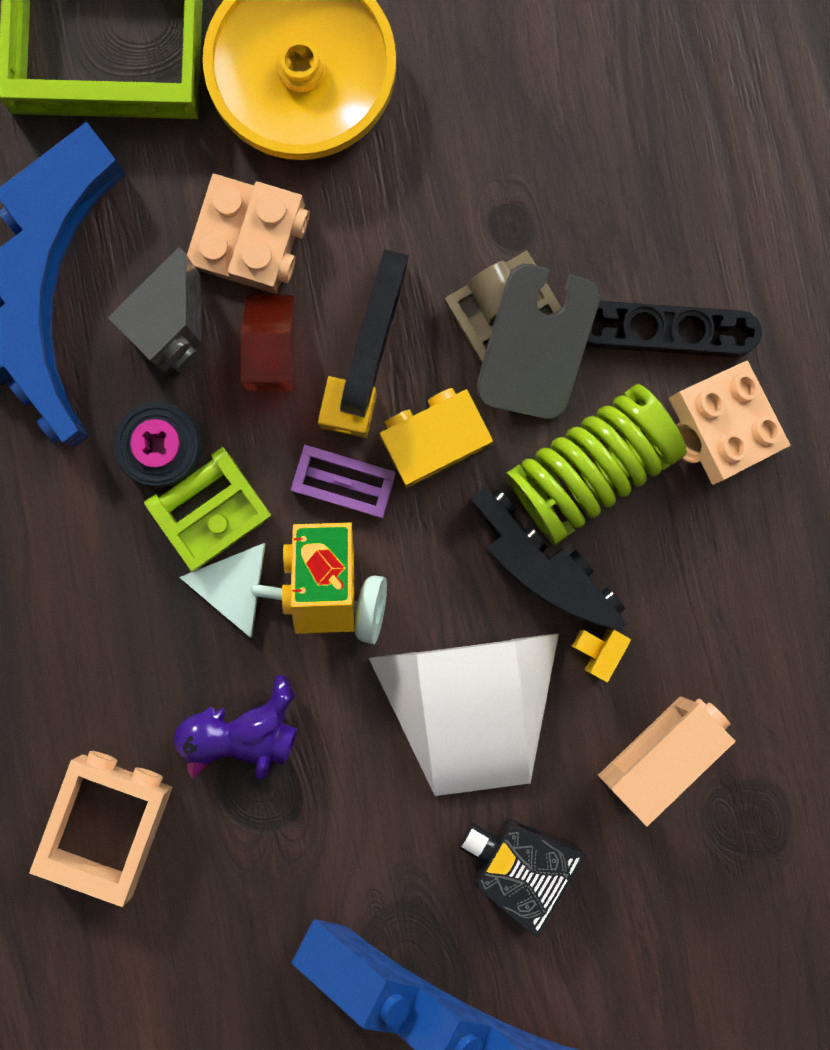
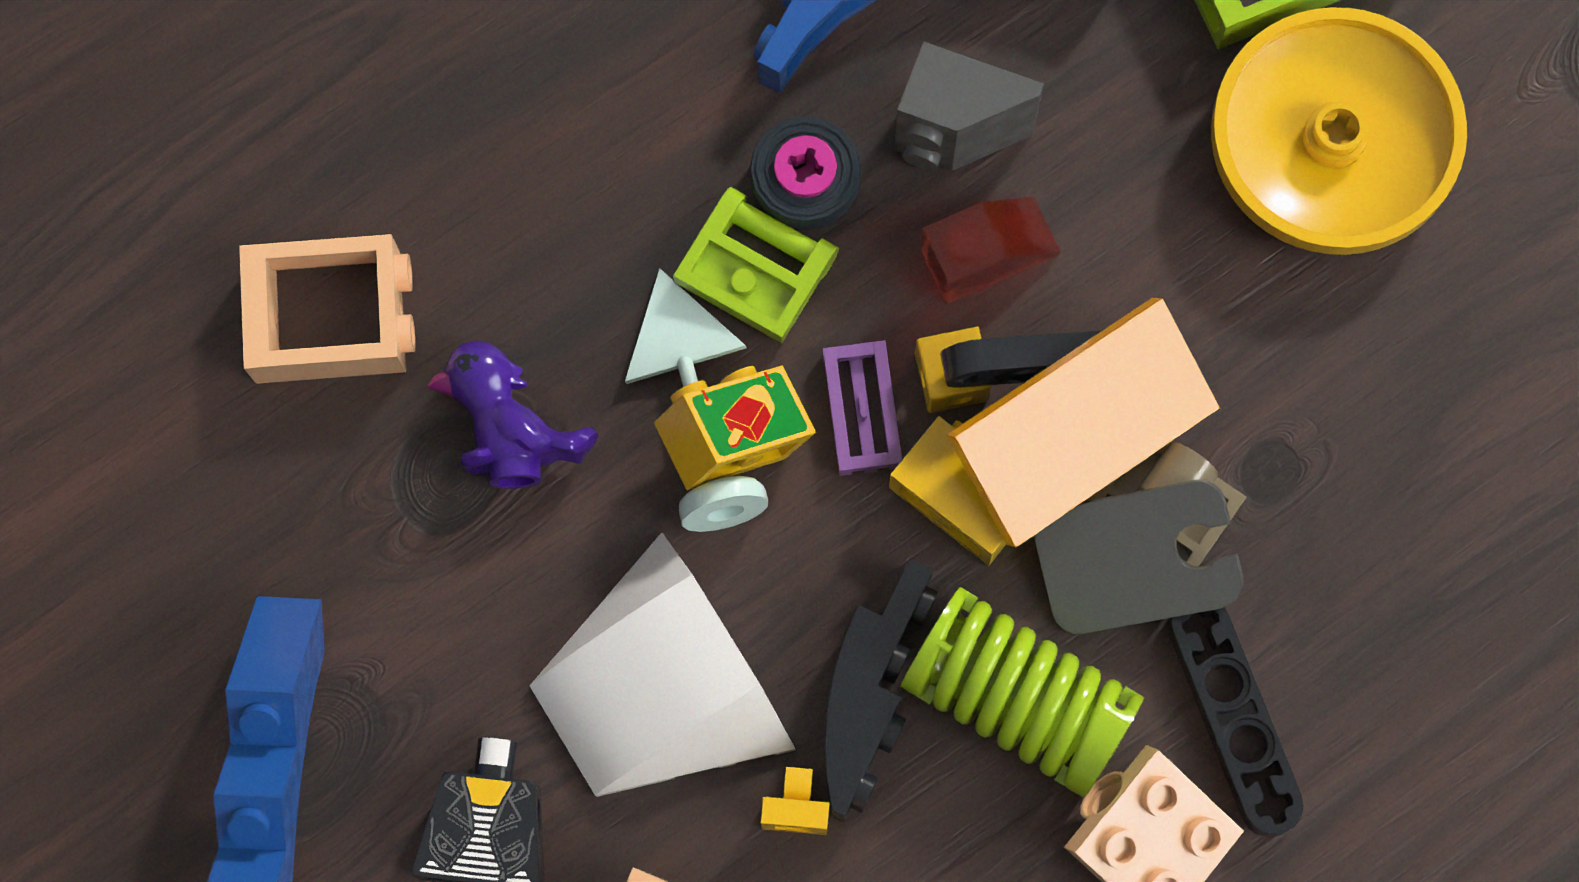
camera: 70 degrees right, 10 degrees down
(248, 233) = (1107, 164): light nougat plate -> none
(431, 335) = (1083, 421): none -> tile

